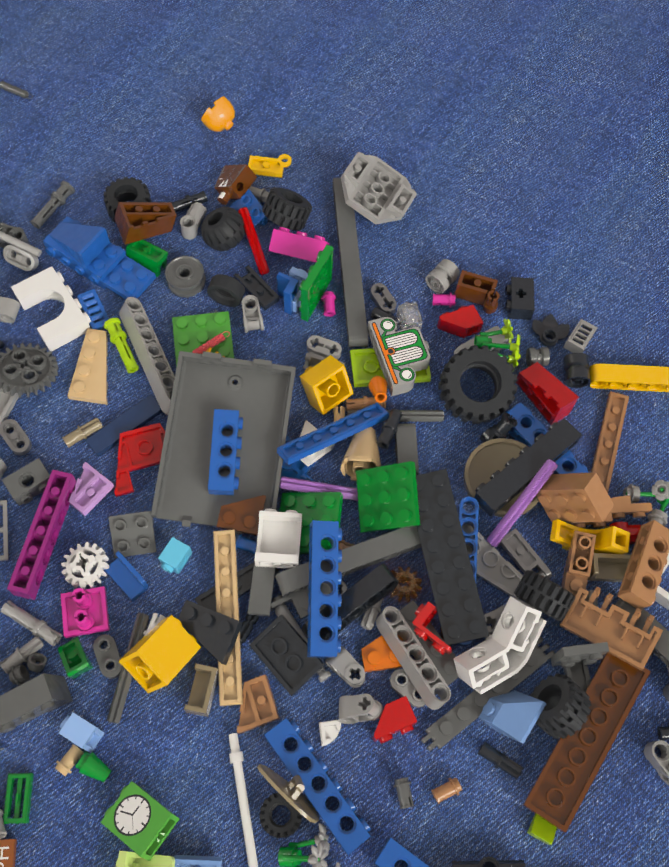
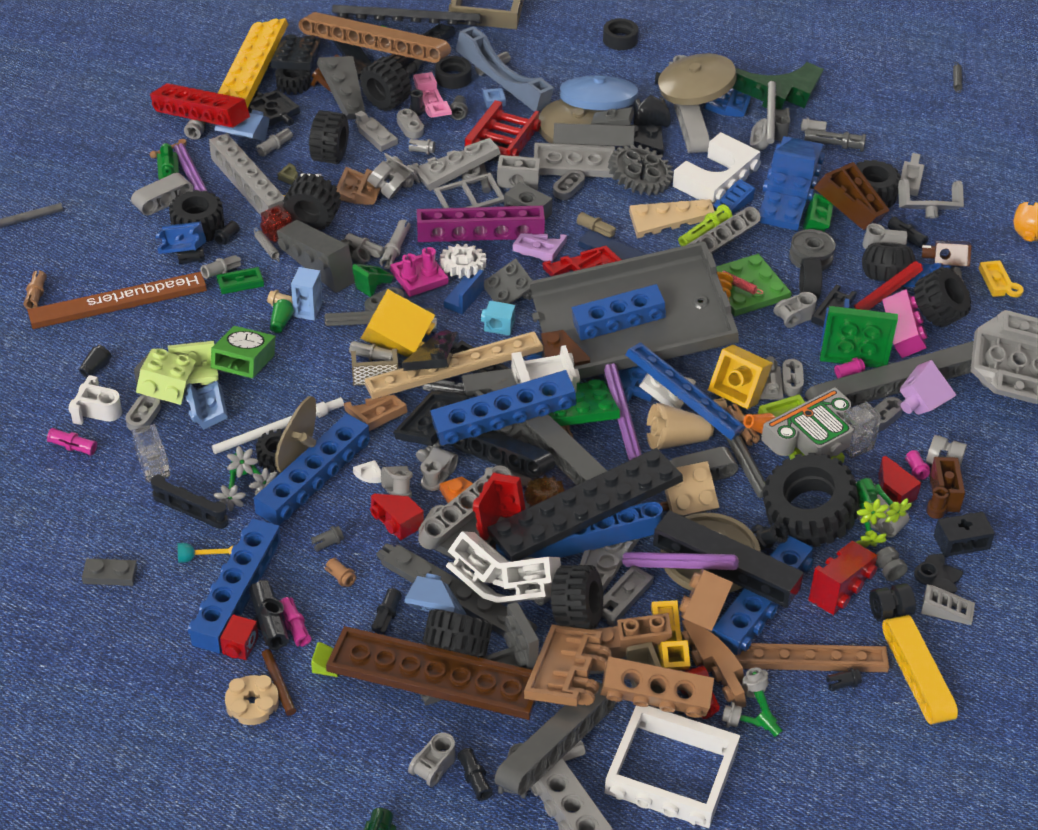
camera: 75 degrees right, 20 degrees down
(25, 217) = (813, 125): none -> light grey pin
(121, 168) = (913, 172): none -> light grey hinge
(169, 173) = (931, 207): none -> light grey piece
(177, 687) = (371, 351): none -> light grey axle
(377, 262) = (925, 389): none -> lavender torso
(388, 497) = (629, 443): green plate -> none
(389, 428) = (716, 438): black pin -> none
(430, 460) = (695, 493): none -> tan plate
(495, 848) = (295, 622): none -> dark pink pin
(635, 425) = (845, 679): none -> black pin

